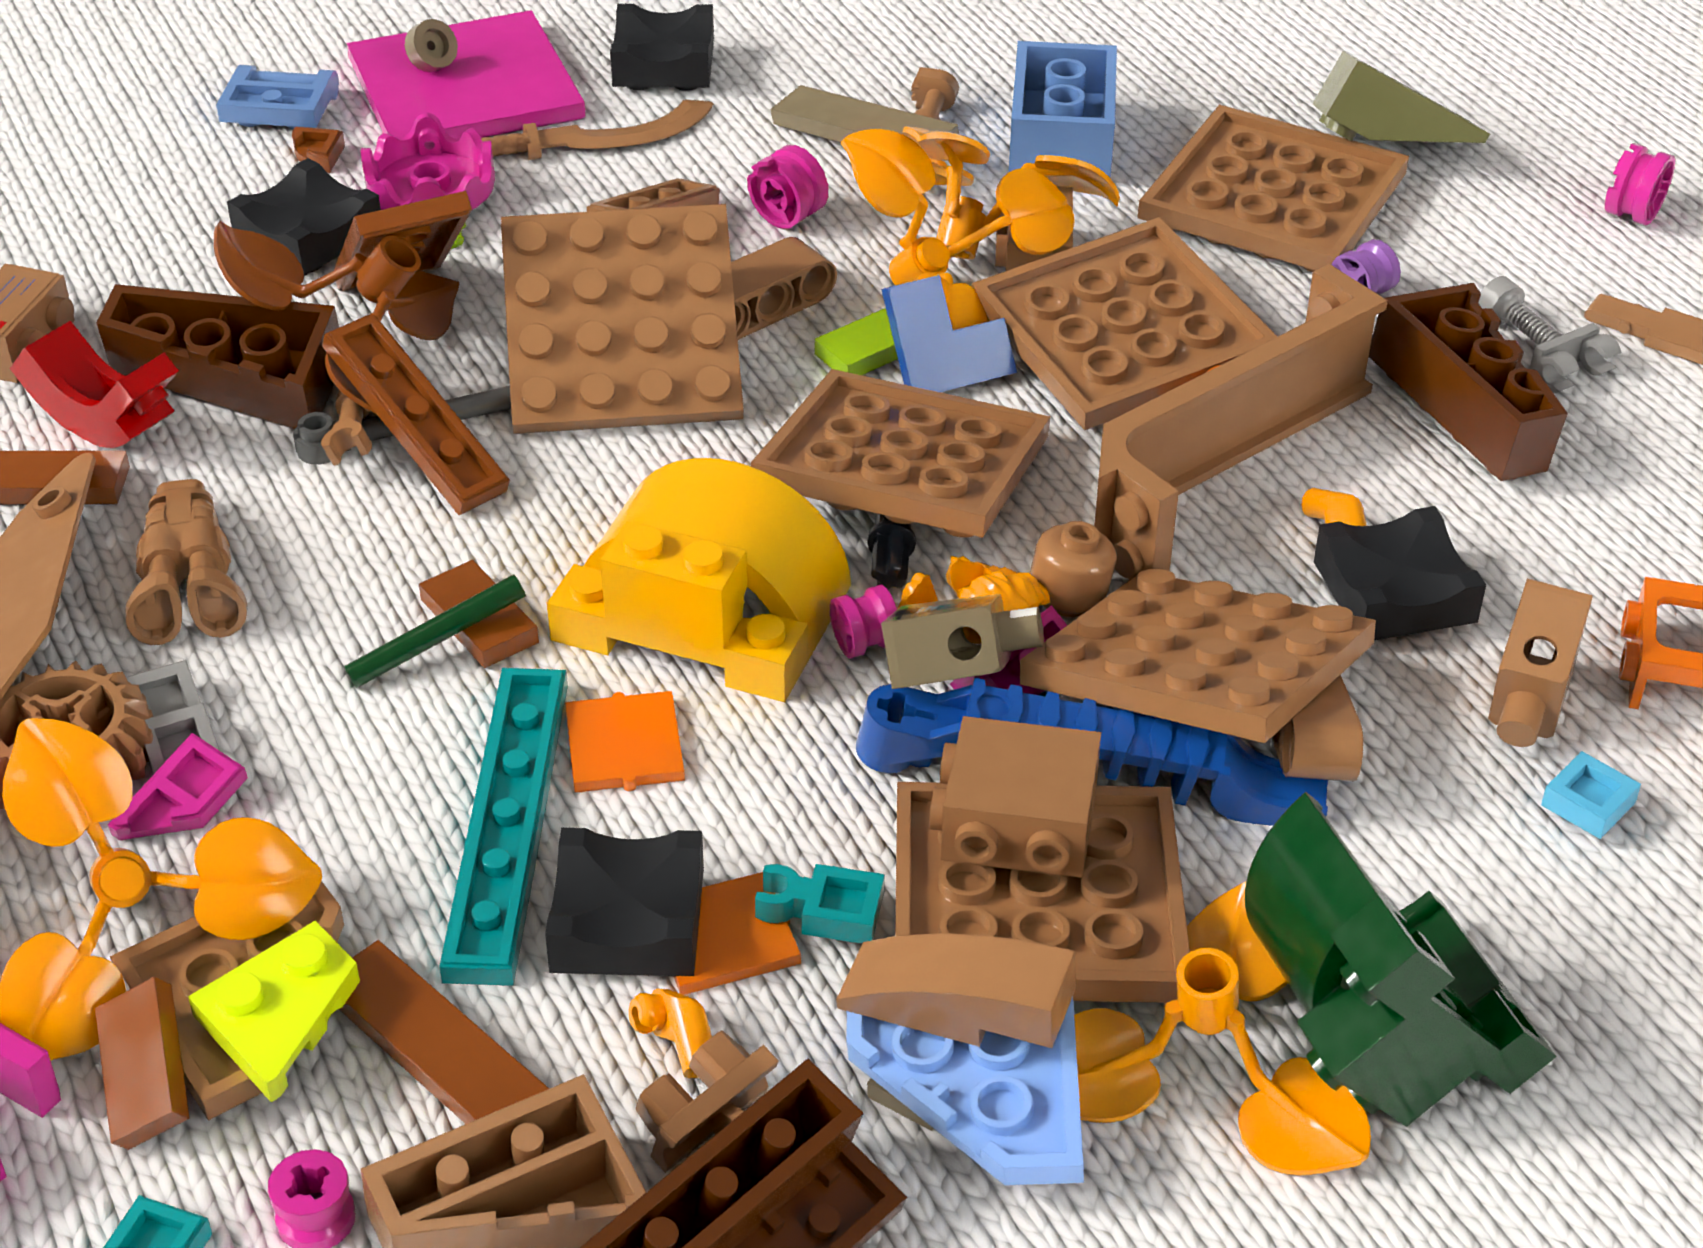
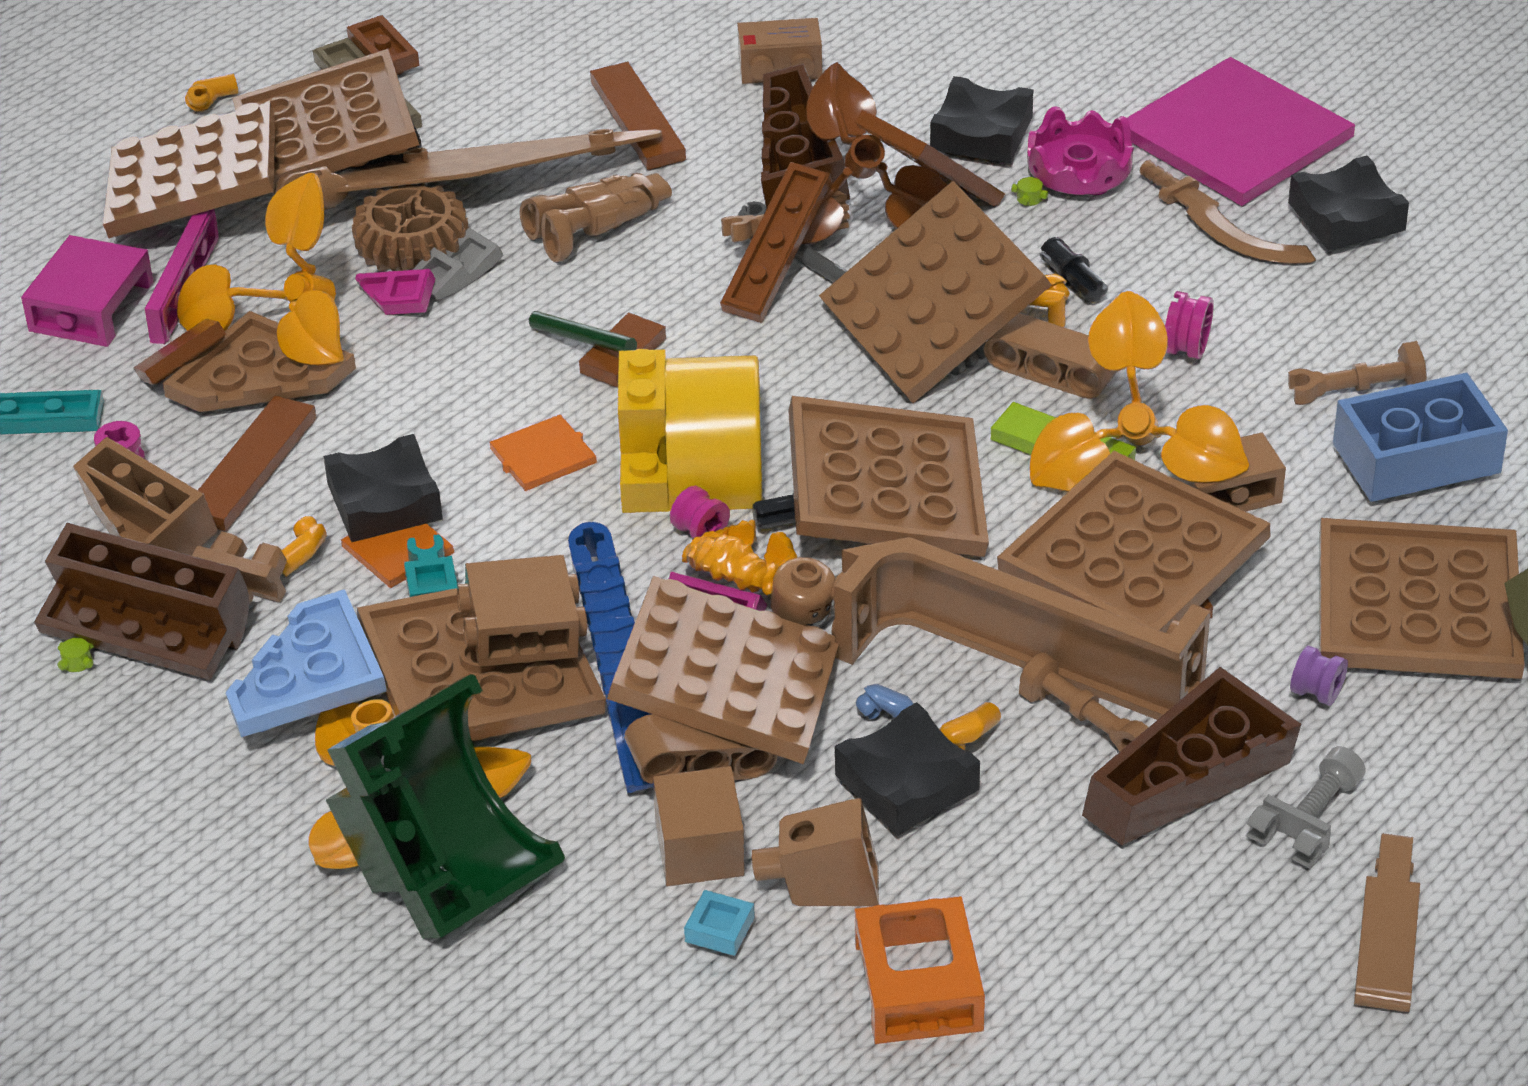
camera: 70 degrees right, 0 degrees up
(90, 395) = (727, 106): red arch -> none
(277, 97) = (1125, 59): medium blue plate -> none
(277, 1004) = (234, 379): neon yellow wing -> none
(318, 145) = (1093, 97): dark orange tile -> none
(431, 45) = (1222, 88): dark tan tile -> none
(505, 829) = (456, 421): teal tile -> none
(665, 194) = (1109, 267): medium nougat tile -> none
(839, 116) = (1319, 342): dark tan tile -> none
(929, 643) = (659, 541): dark tan torso -> none
(935, 354) = (1021, 459): tile -> none
(963, 986) = (332, 627): medium nougat slope -> none
(964, 214) = (1199, 363): light orange plant -> none
(1275, 561) = (881, 698): none -> medium blue arm
(1283, 440) = (1042, 678): none -> medium nougat piece
(1453, 755) = (699, 826): none -> medium nougat head

